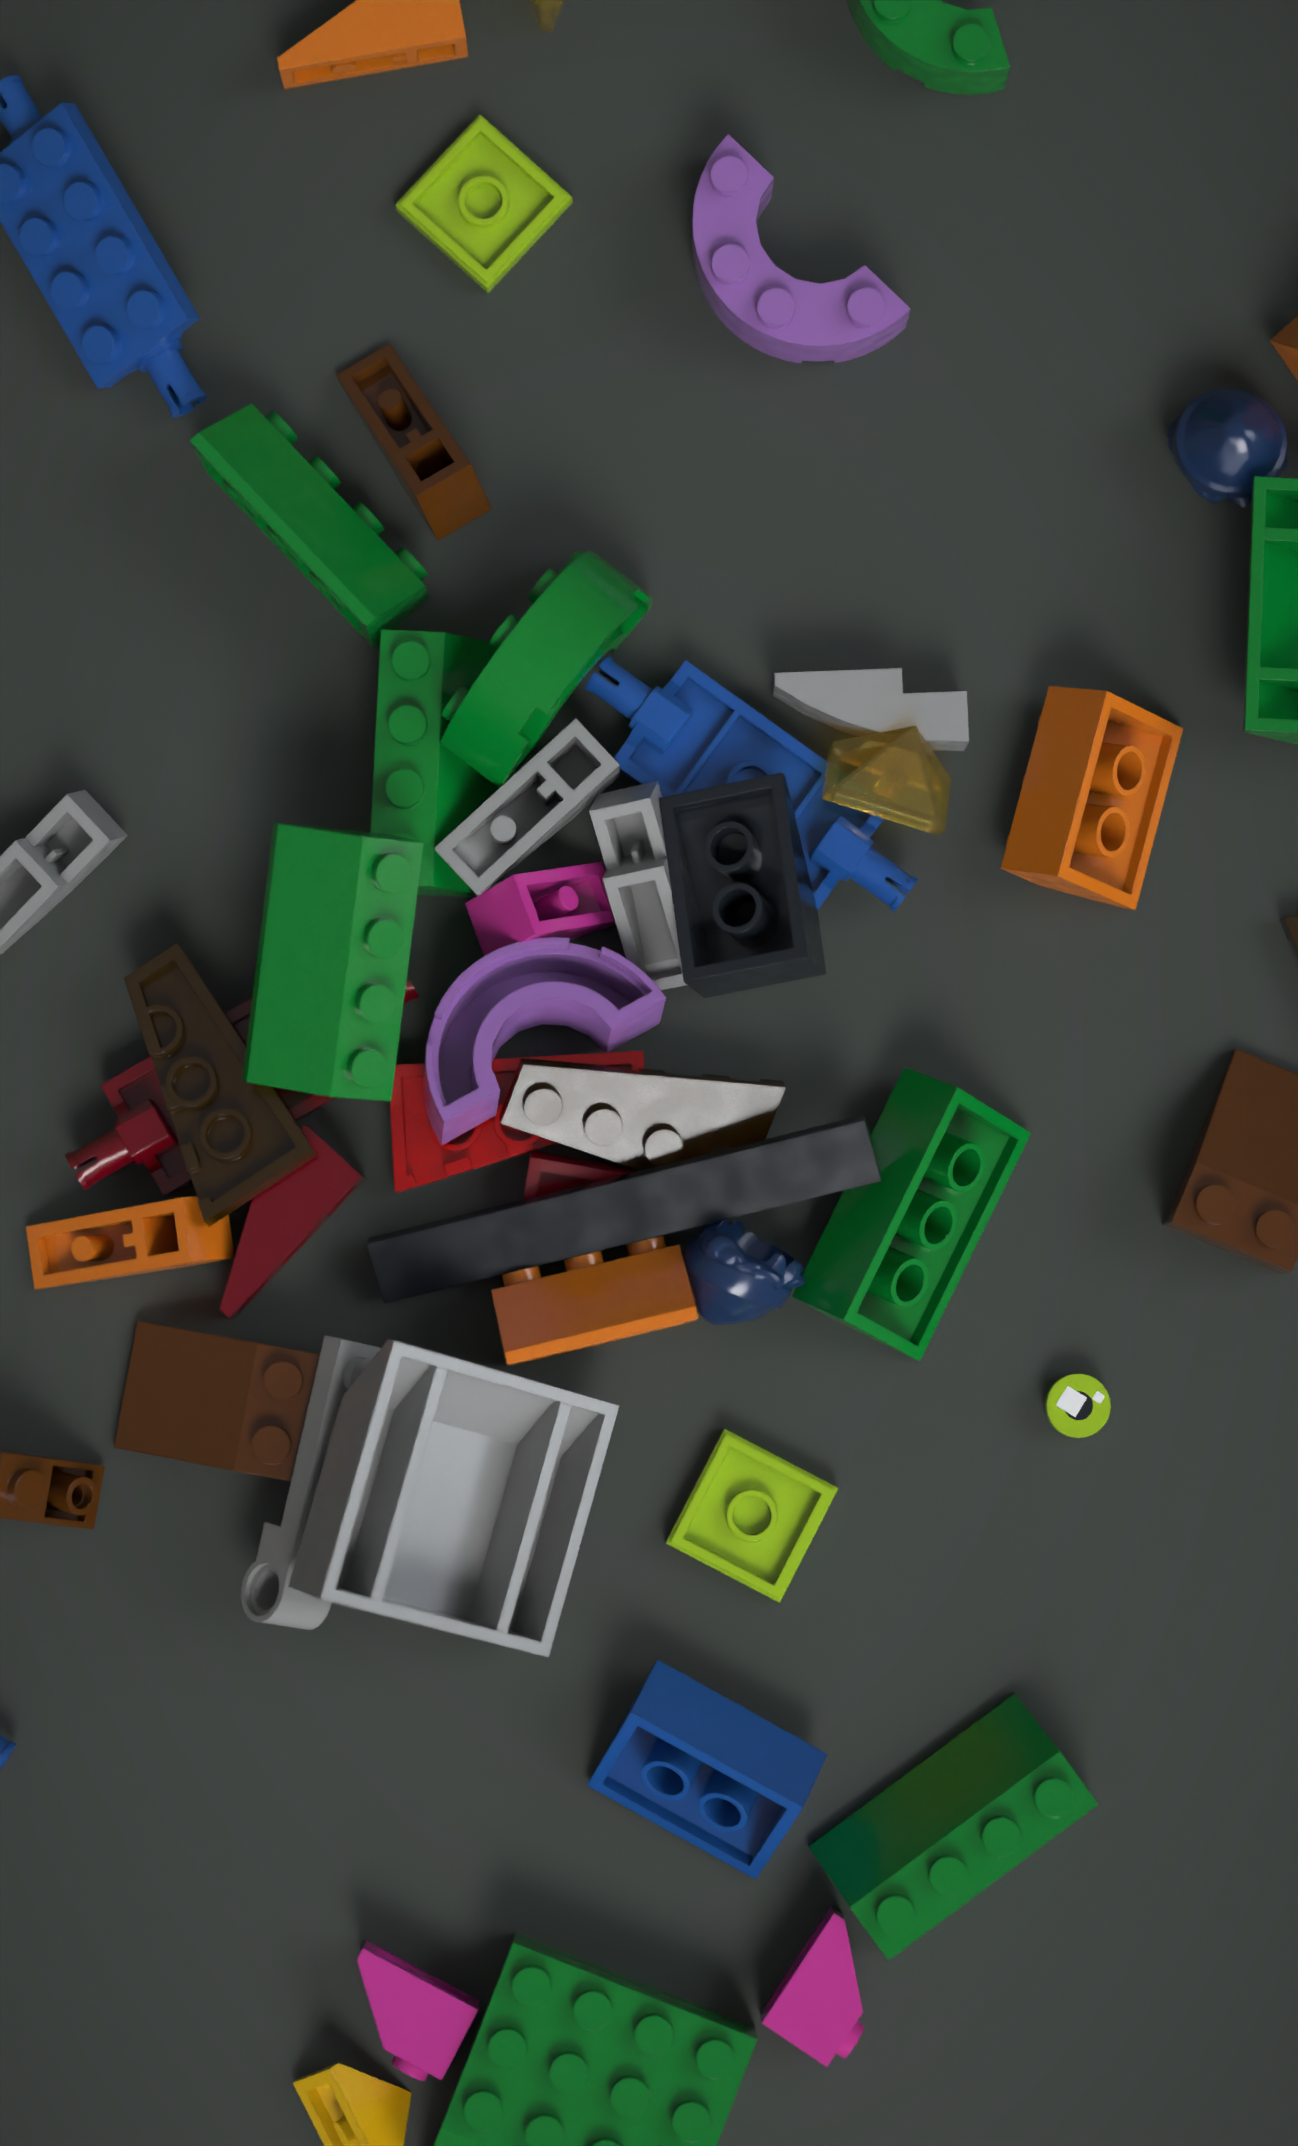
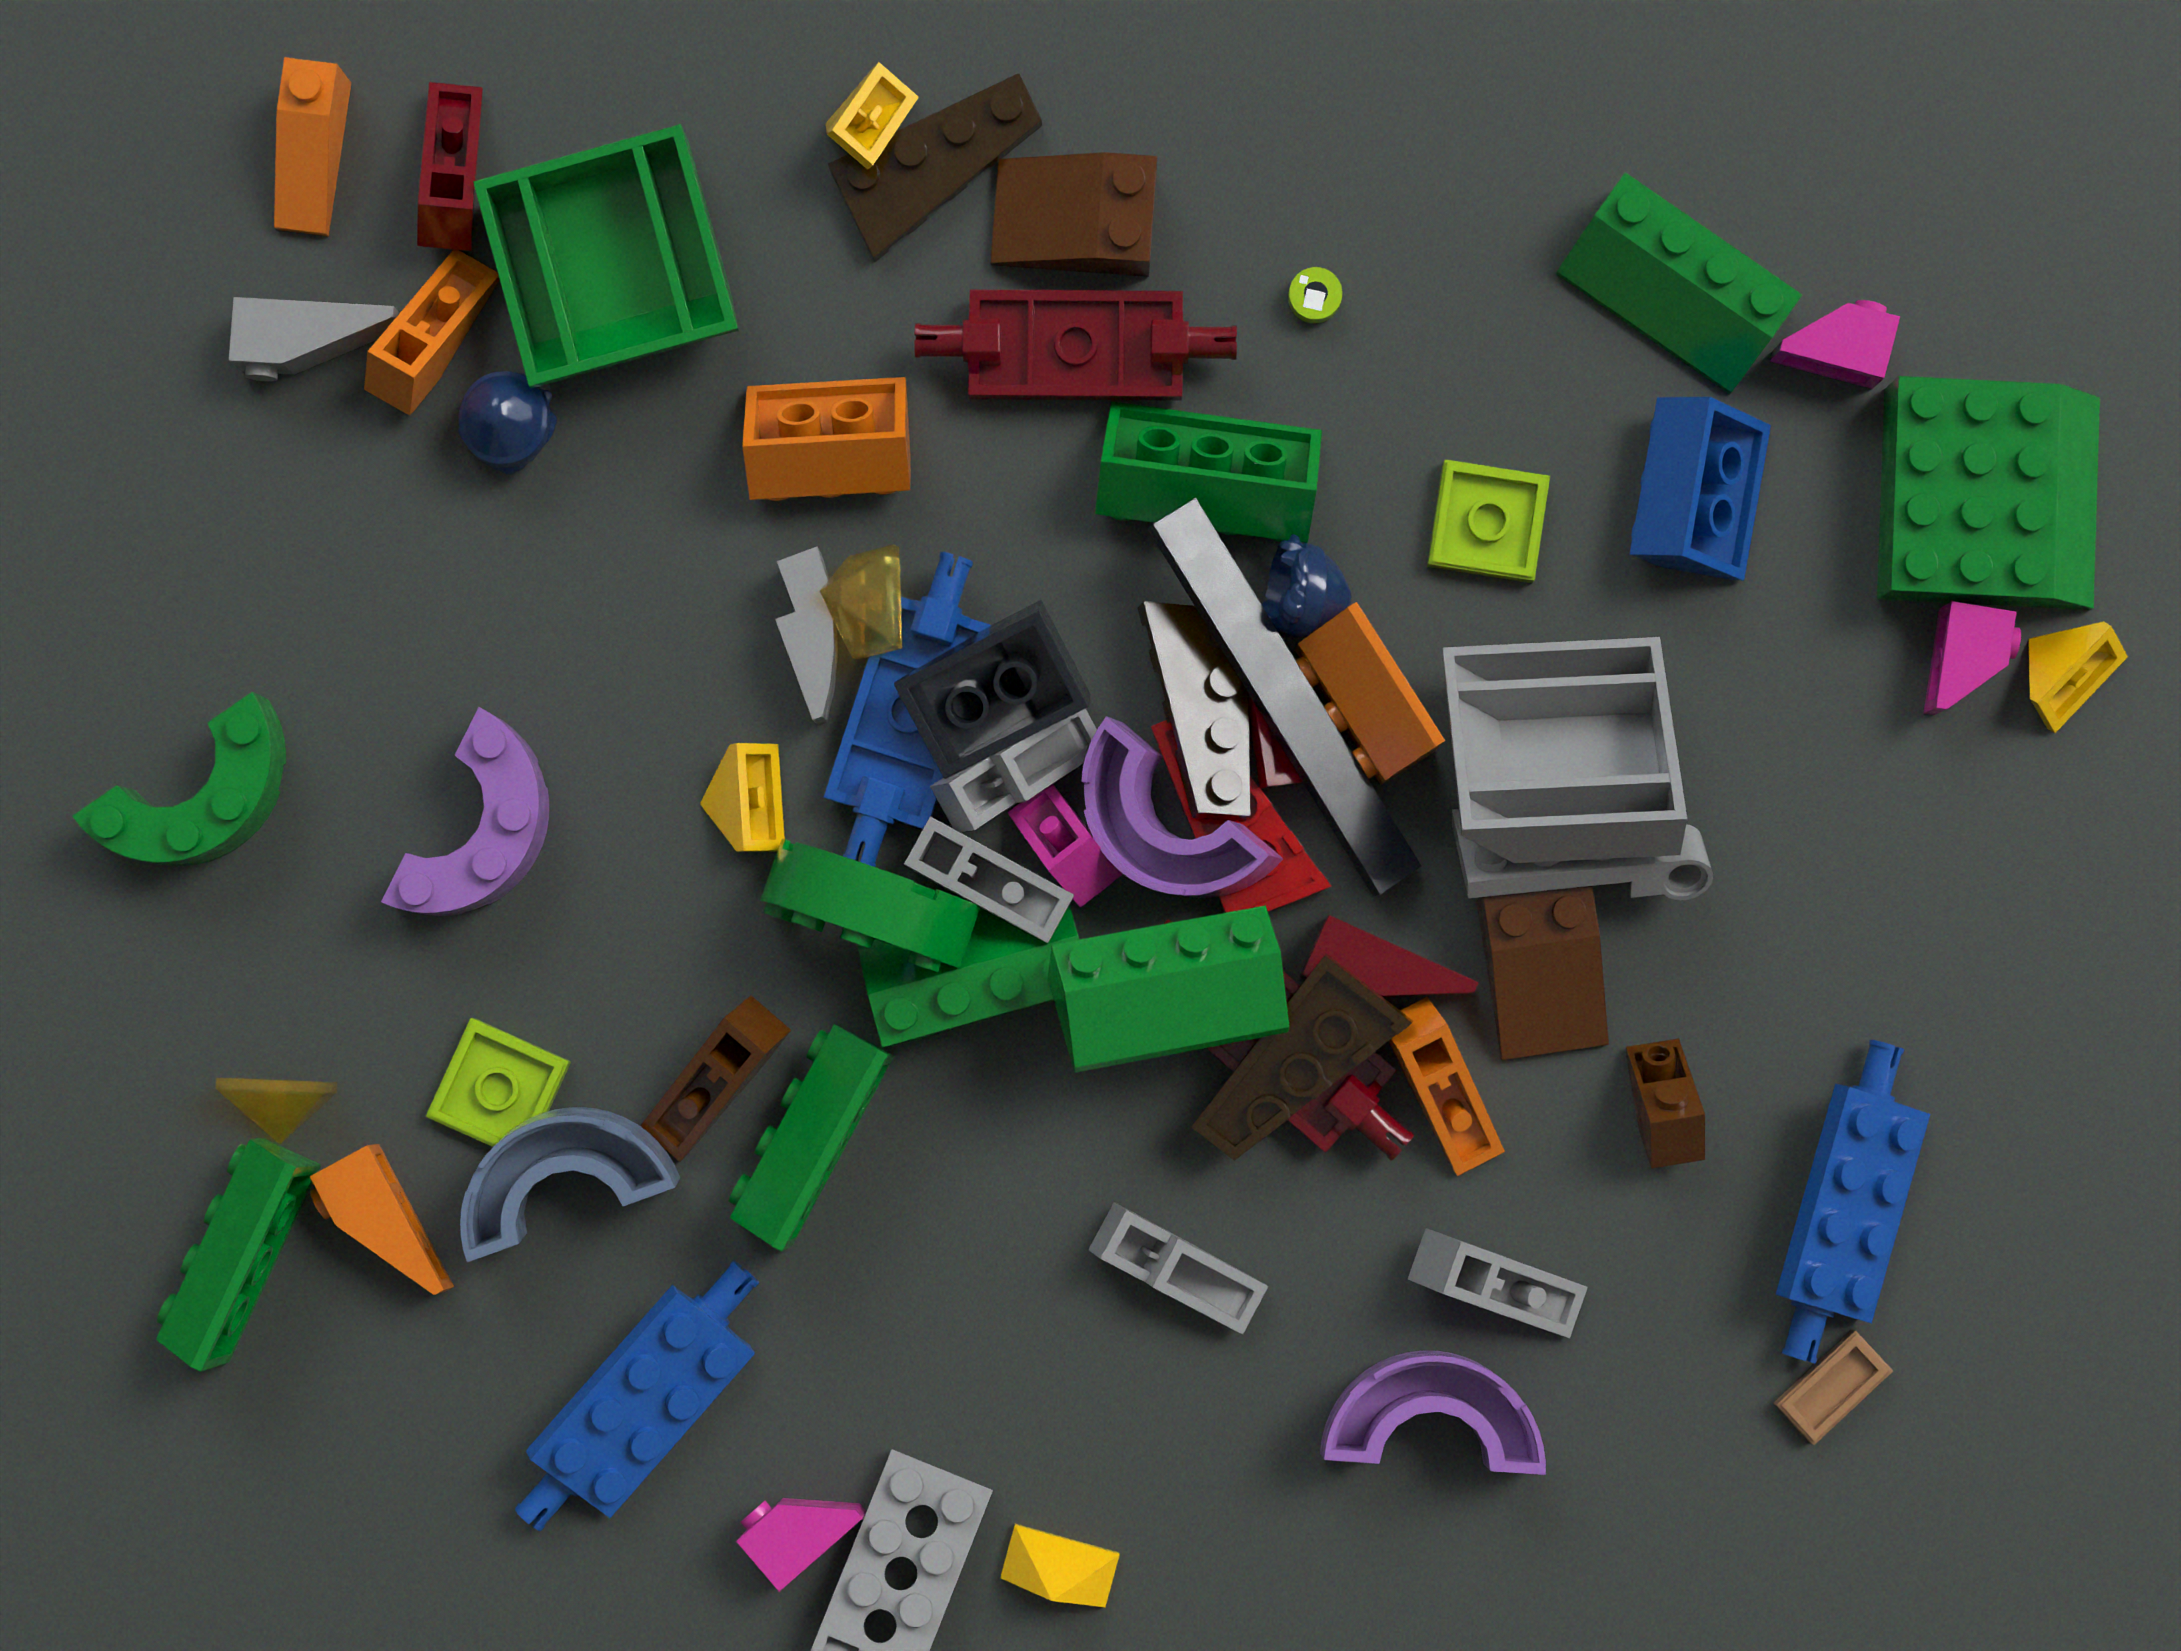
camera: 100 degrees left, 0 degrees up
(398, 243) = (552, 1143): none -> sand blue brick
(713, 578) = (747, 797): none -> yellow slope
(1108, 1111) = (1075, 344): none -> dark red plate

